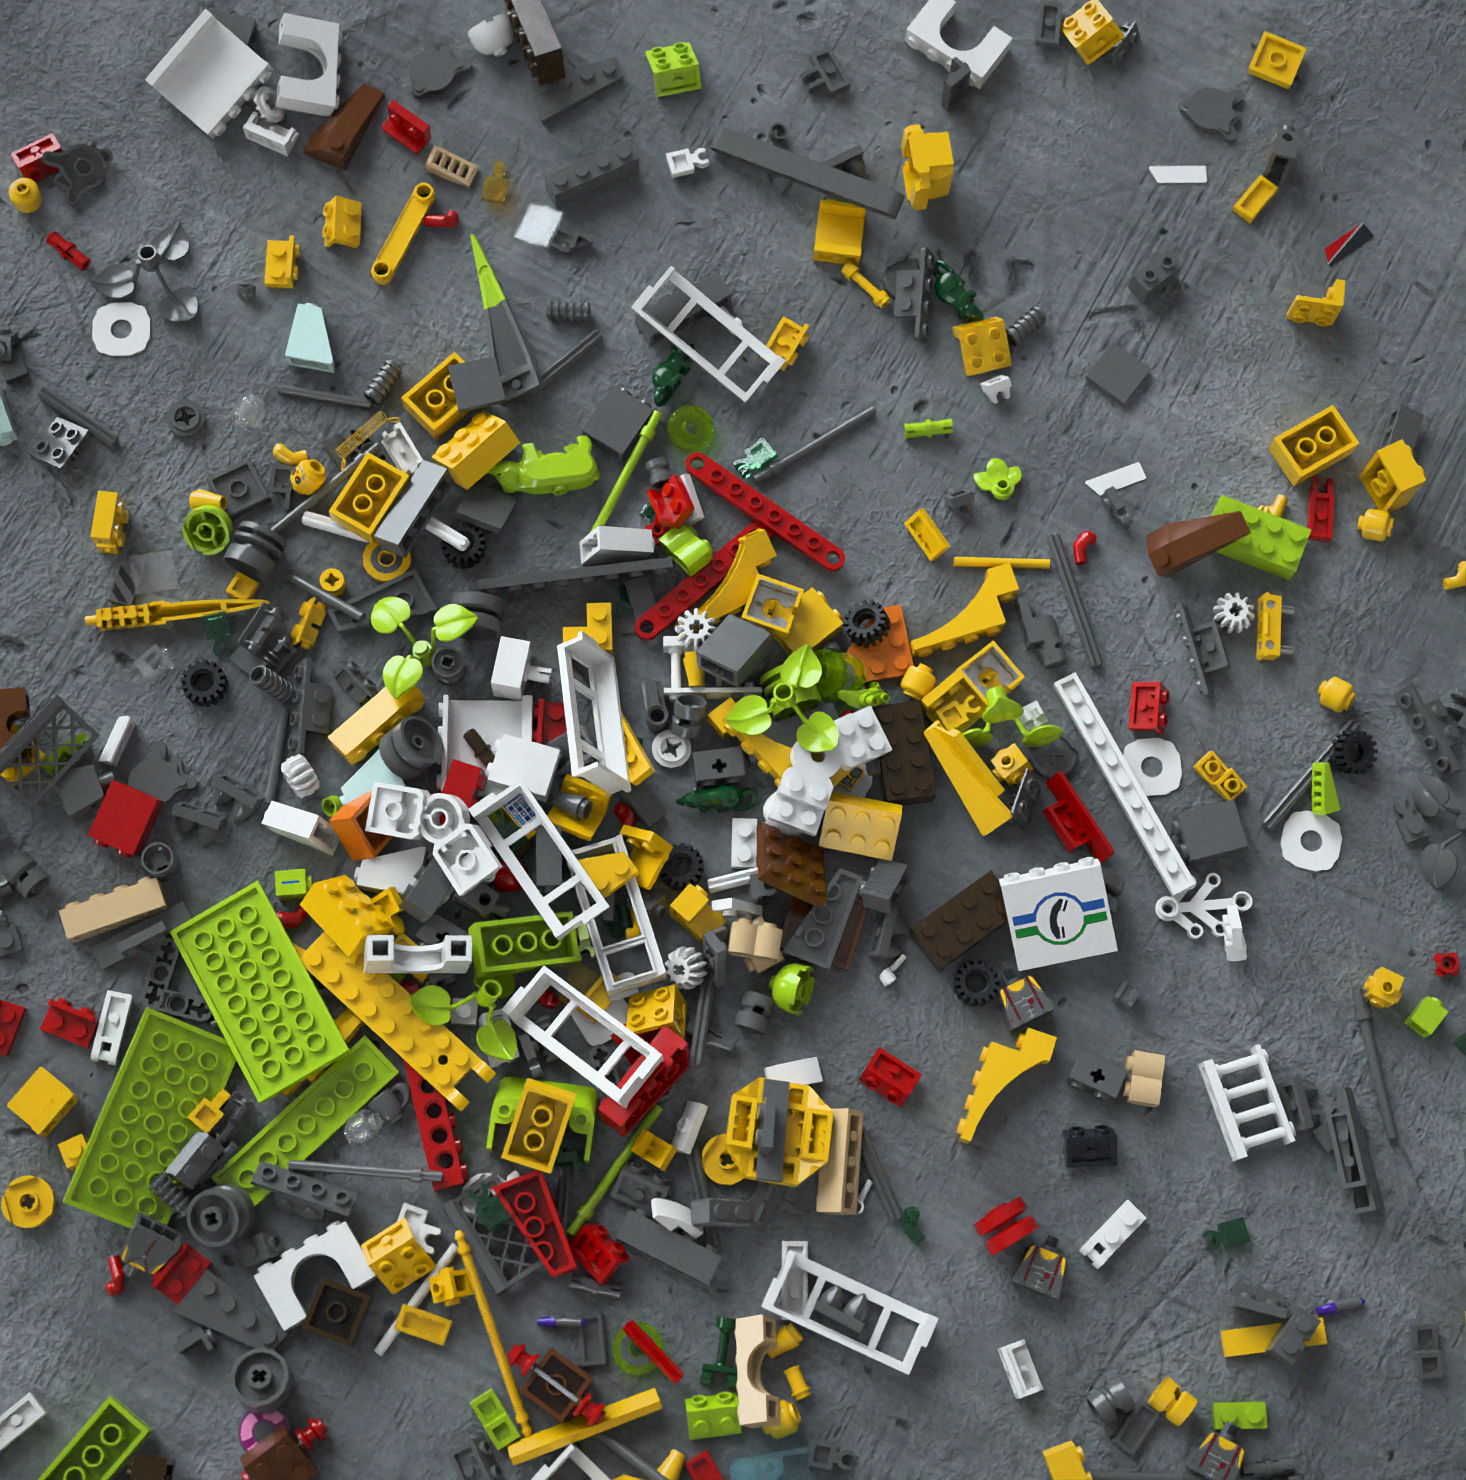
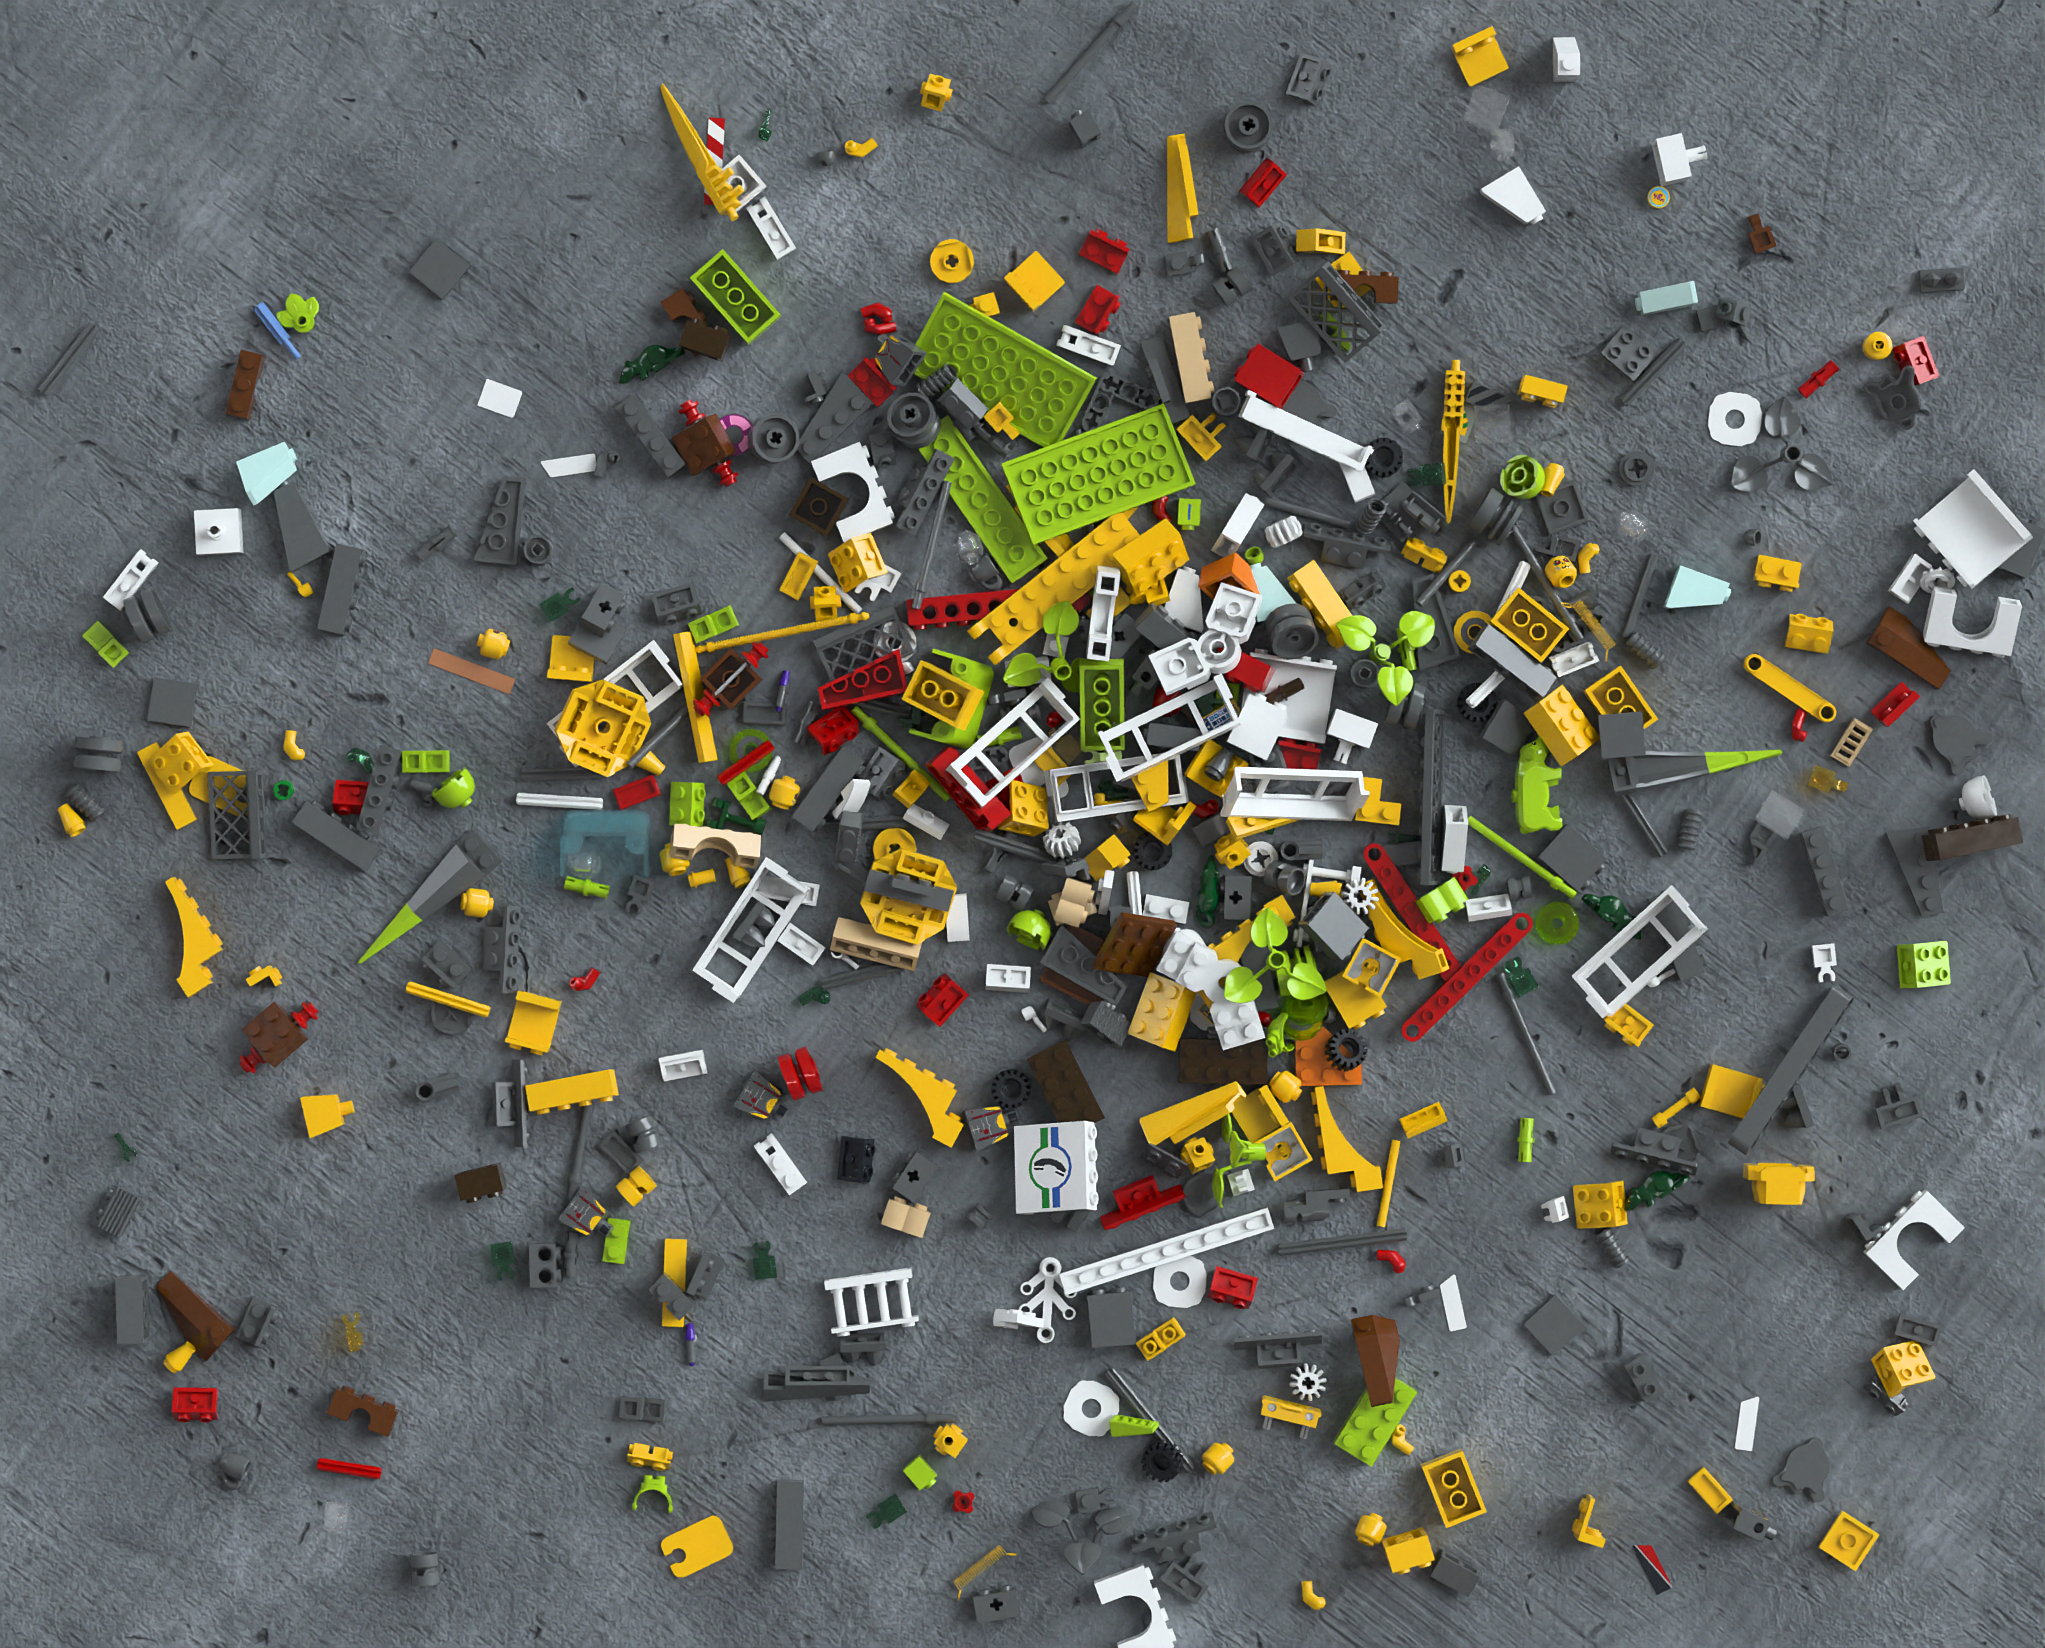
camera: 100 degrees right, 15 degrees up
(95, 1280) = (879, 310): none -> red arm
(117, 741) = (1342, 375): white slope -> none
(185, 765) = (1304, 433): none -> white piece
(204, 886) = (1199, 437): none -> yellow hinge
(229, 707) = (1358, 483): none -> white slope
(242, 587) = (1467, 500): yellow tile -> none
(399, 635) = (1407, 653): none -> lime pin
(491, 1209) = (882, 644): clear green plate -> none
(573, 1044) = (1007, 735): none -> lime pin
(664, 1322) = (768, 775): none -> white piece
(667, 779) = (1231, 851): none -> yellow brick
(671, 503) = (1485, 893): red bracket -> none
(681, 1299) = (784, 792): none -> yellow head
(692, 1342) = (746, 794): none -> lime slope
(852, 1004) = (1008, 978): none -> white hinge
(854, 1250) = (801, 944): none -> white plate
(955, 715) = (1250, 1113): yellow plate -> none
(998, 476) = (1471, 1195): lime plate -> none
(1320, 511) = (1392, 1482): red hinge -> none

